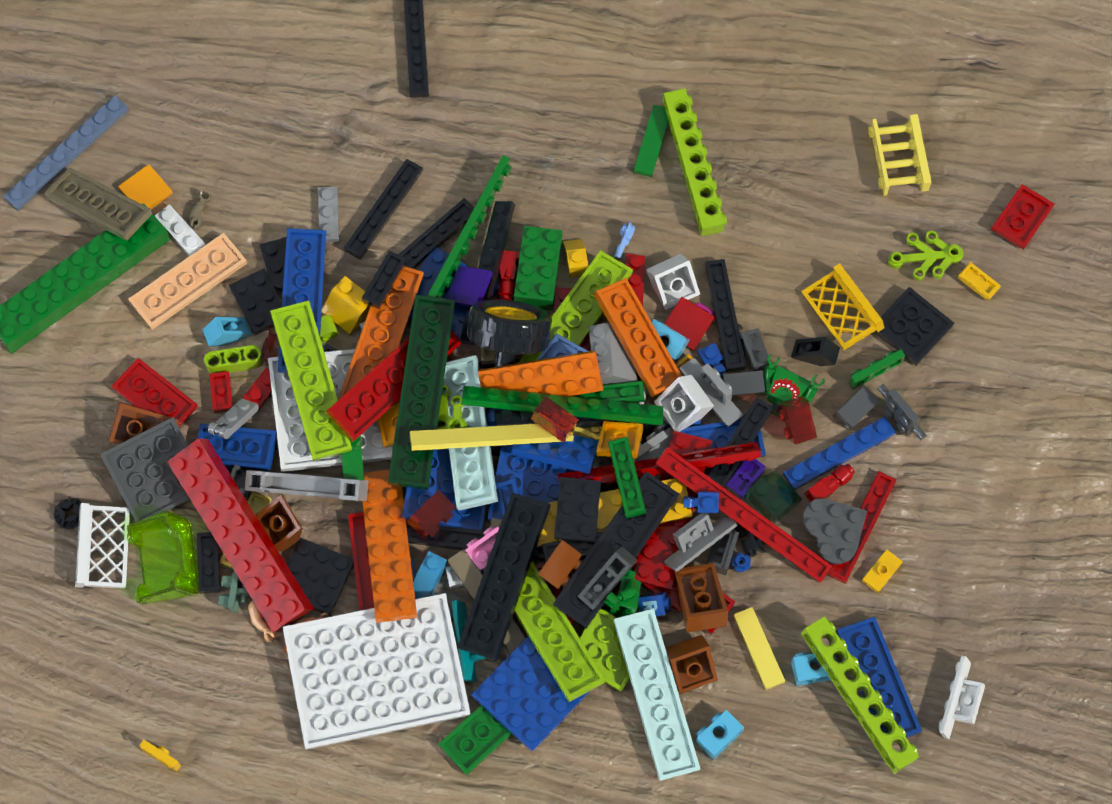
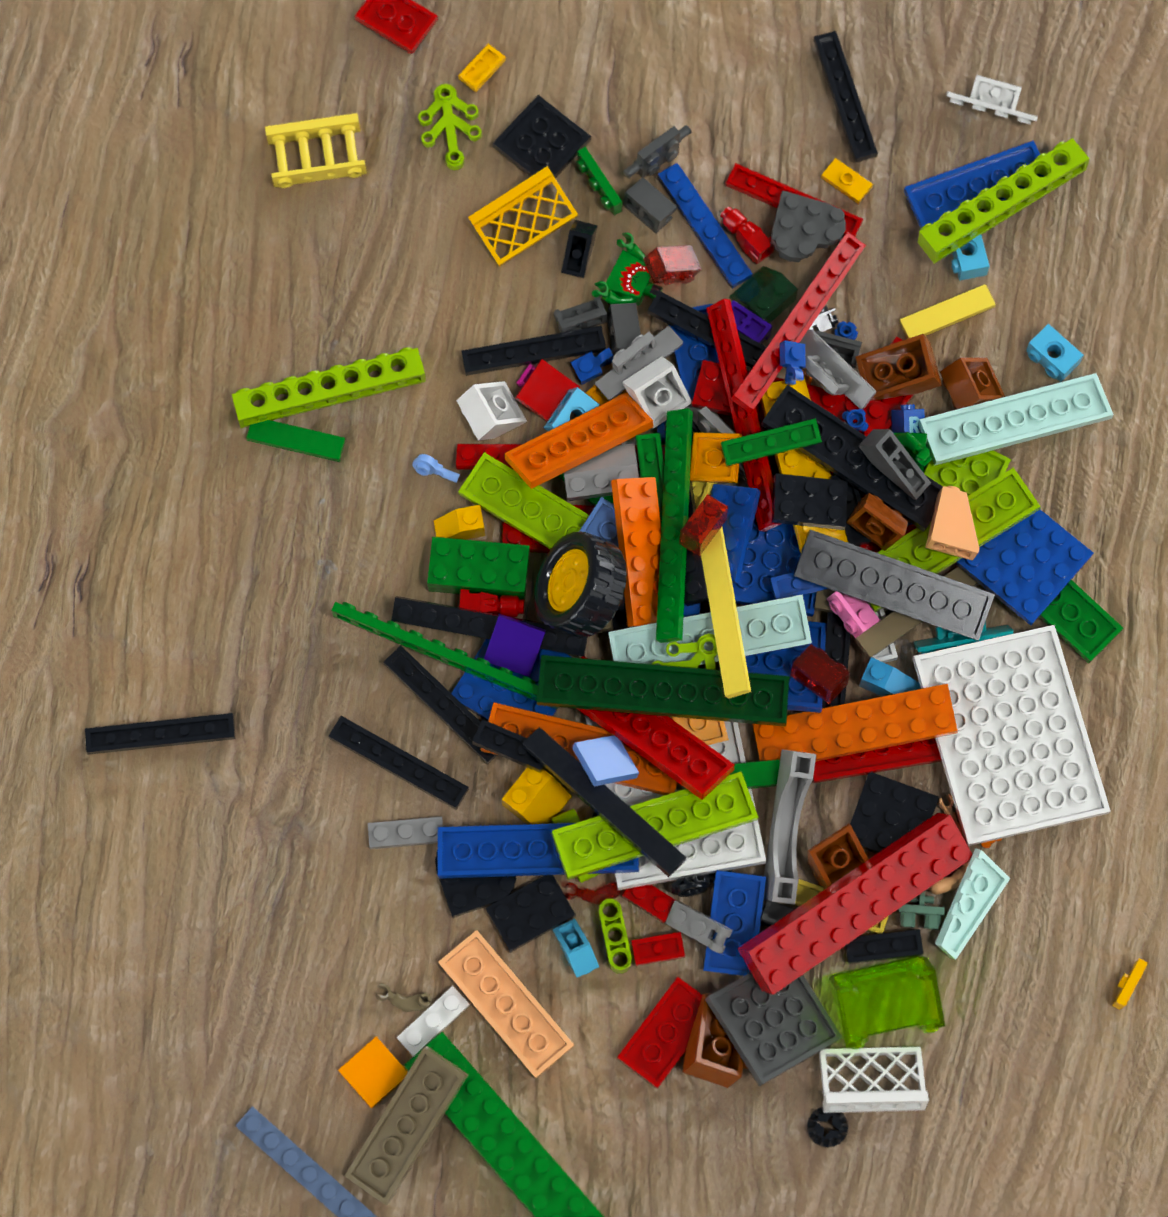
camera: 90 degrees left, 5 degrees up
(240, 633) = (973, 900): none -> light aqua wing
(267, 414) = (690, 886): none -> black gear
(329, 339) = (604, 802): none -> black tile
(364, 343) = (605, 760): none -> tile
(553, 623) = (953, 525): none -> light nougat slope
(653, 550) = (858, 415): none -> blue plate
(961, 573) = (845, 96): none -> black plate

